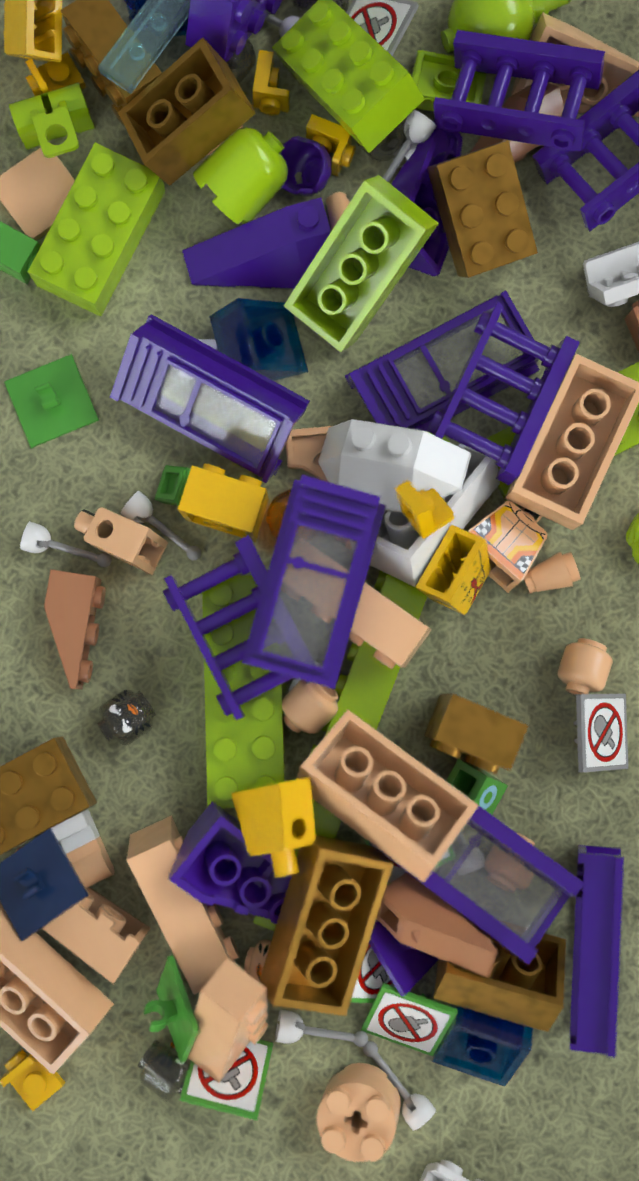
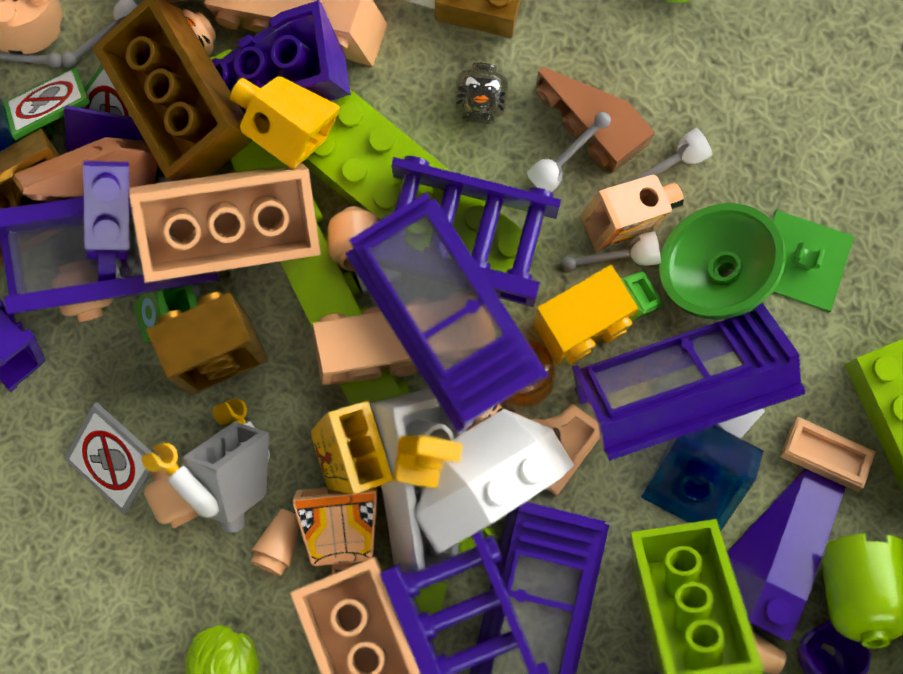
camera: 135 degrees right, 5 degrees down
(100, 471) = (720, 240): none -> bright green dish
(143, 620) = (548, 173): none -> hinge
(172, 277) = (828, 454): none -> light nougat tile
(455, 881) = (106, 214): none -> hinge
(542, 645) = (224, 472): none -> light grey torso

